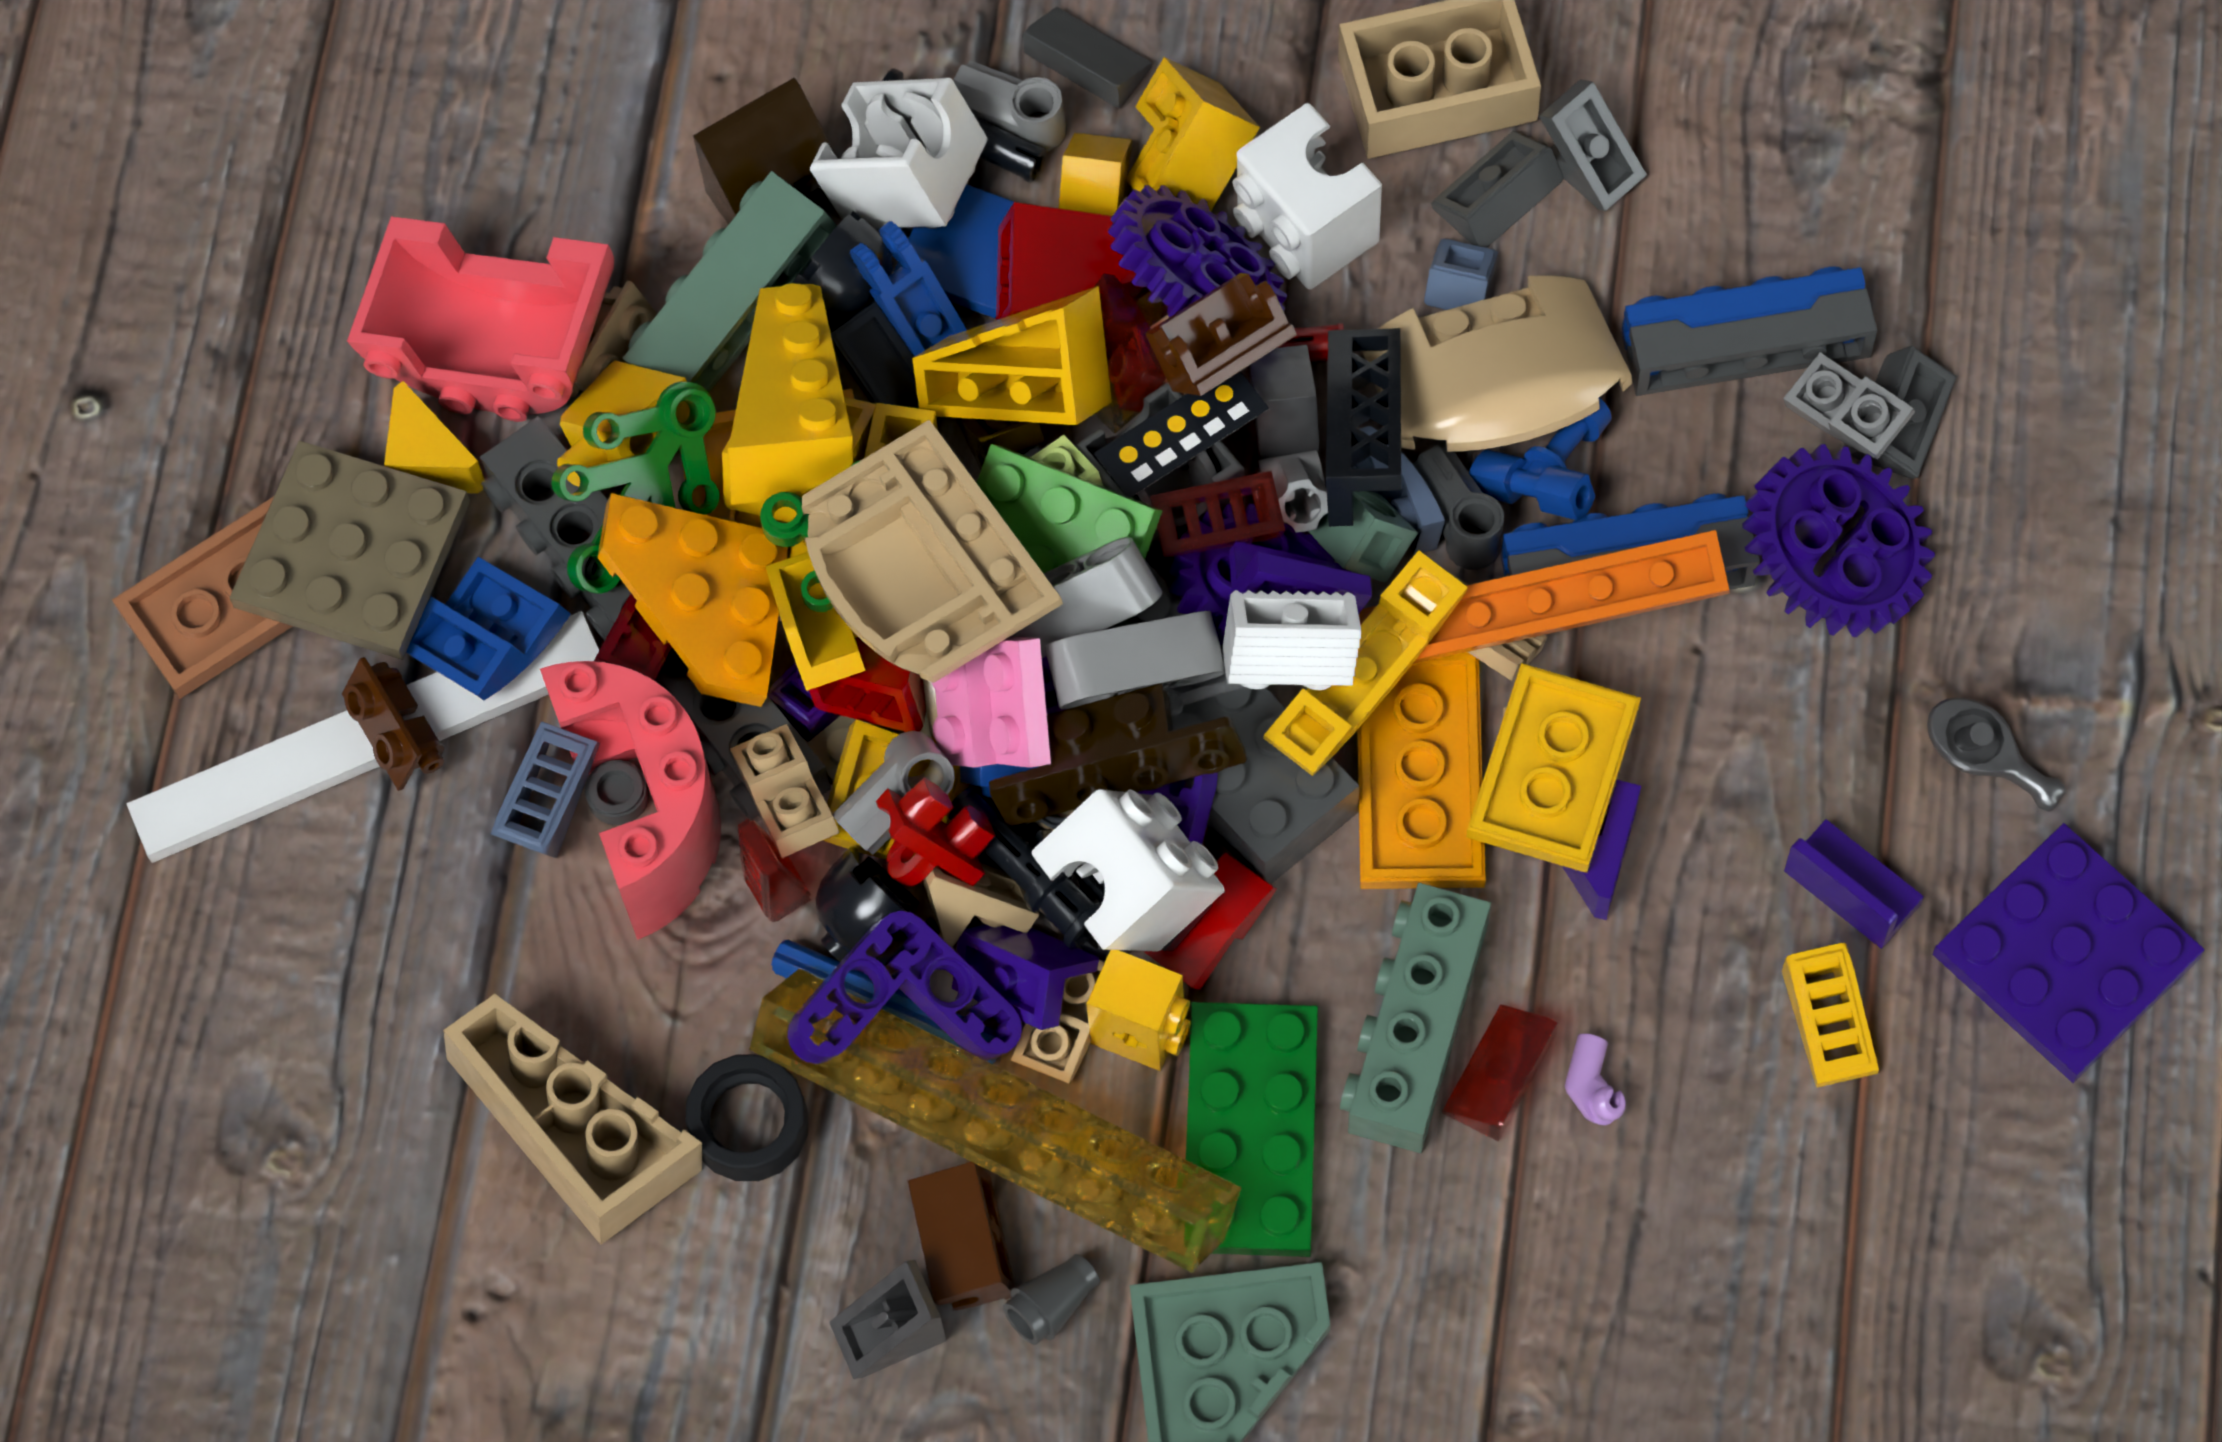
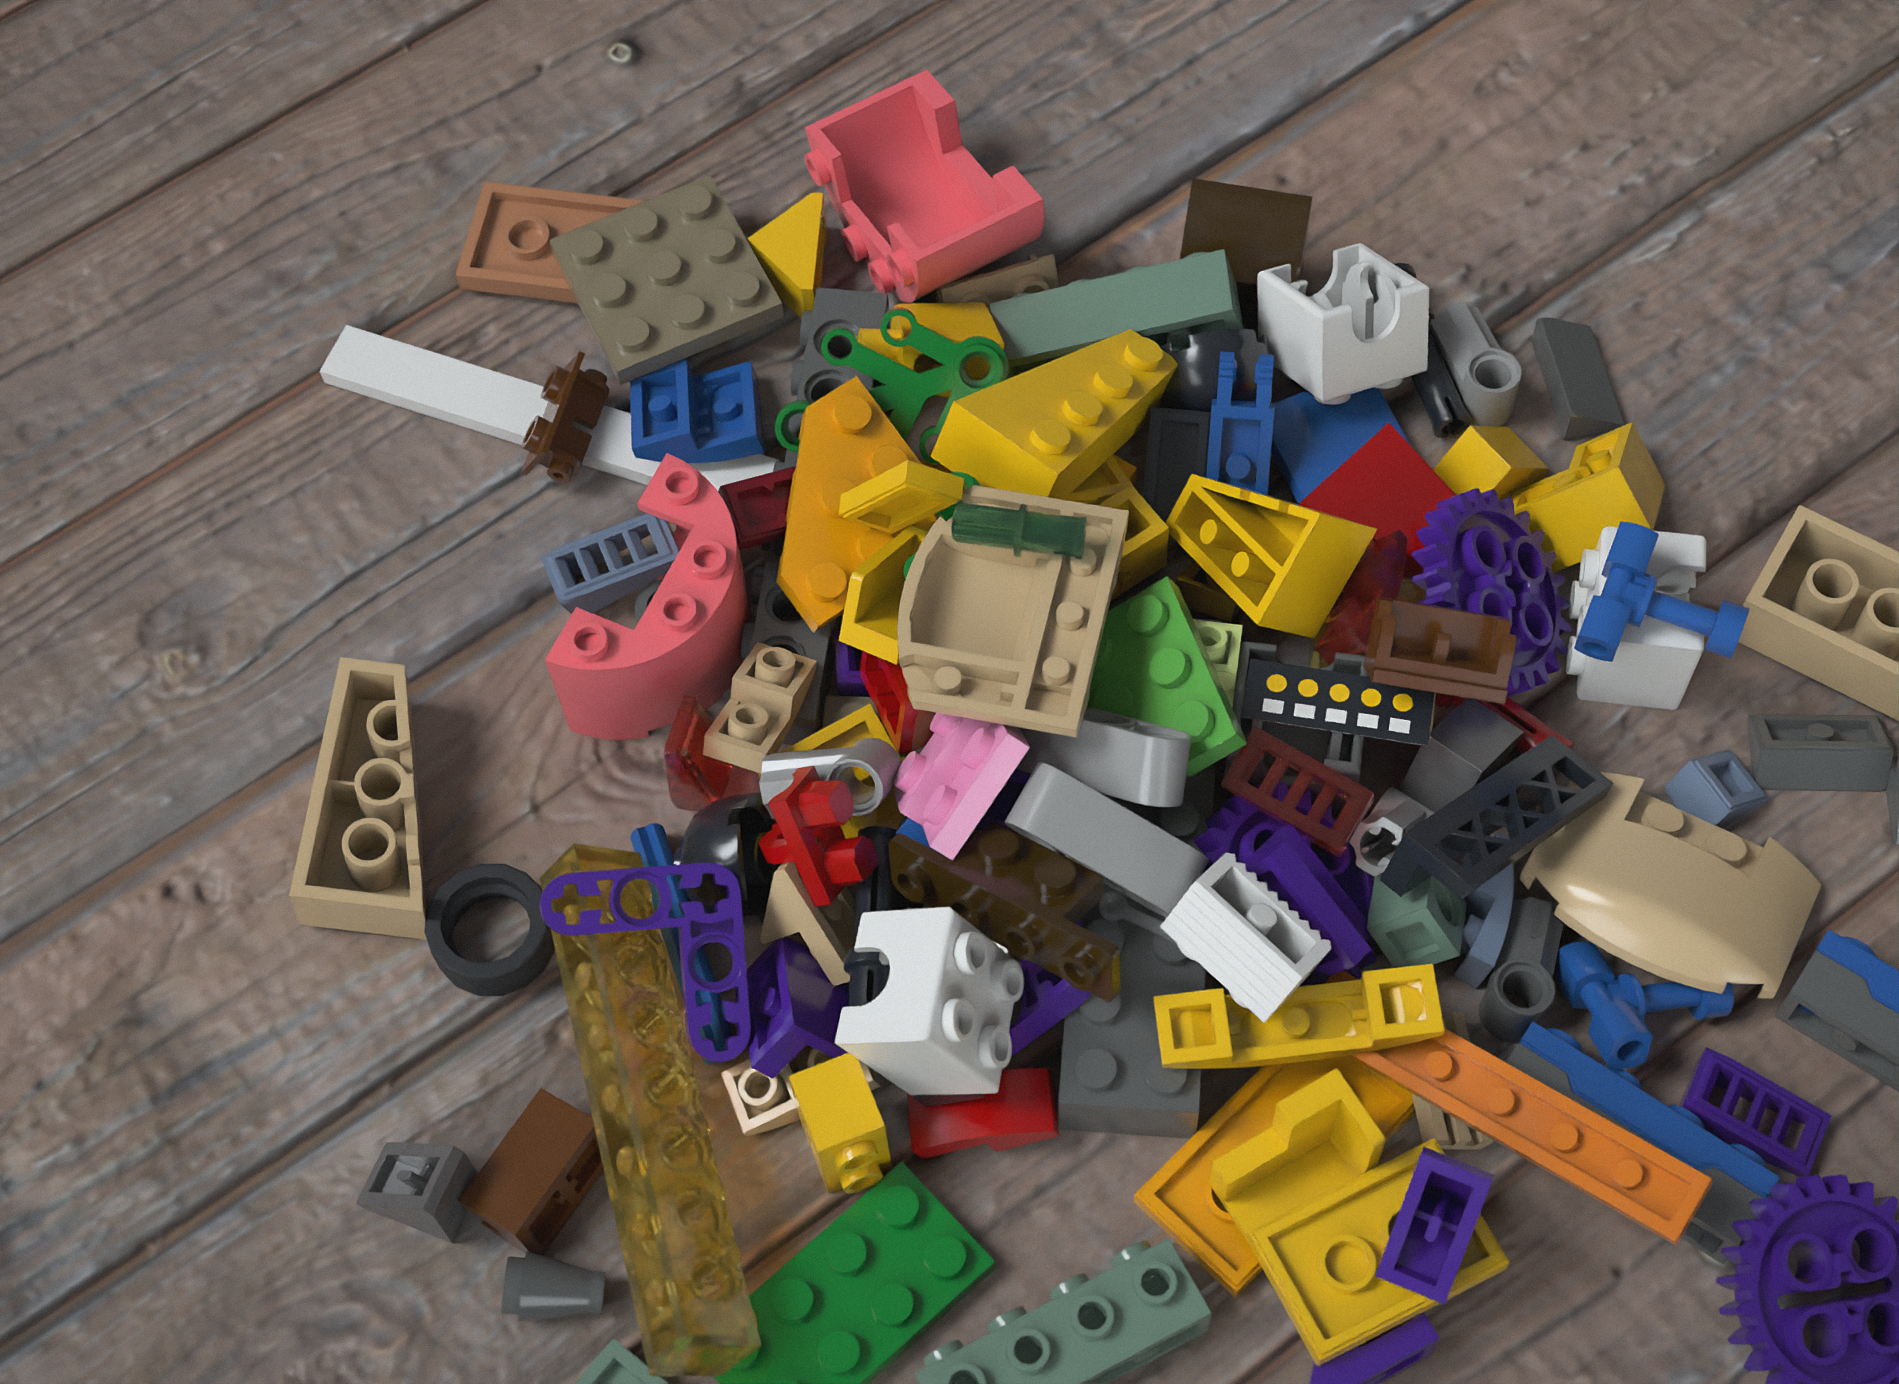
camera: 45 degrees right, 5 degrees down
(753, 550) = (901, 497): none -> yellow tile
(878, 496) = (1019, 530): none -> clear green axle
(1308, 186) = (1631, 595): none -> blue bar
(1451, 755) = (1313, 1146): none -> yellow panel
(1580, 712) = (1434, 1225): none -> dark purple slope
(1658, 457) = (1743, 1082): none -> dark purple slope

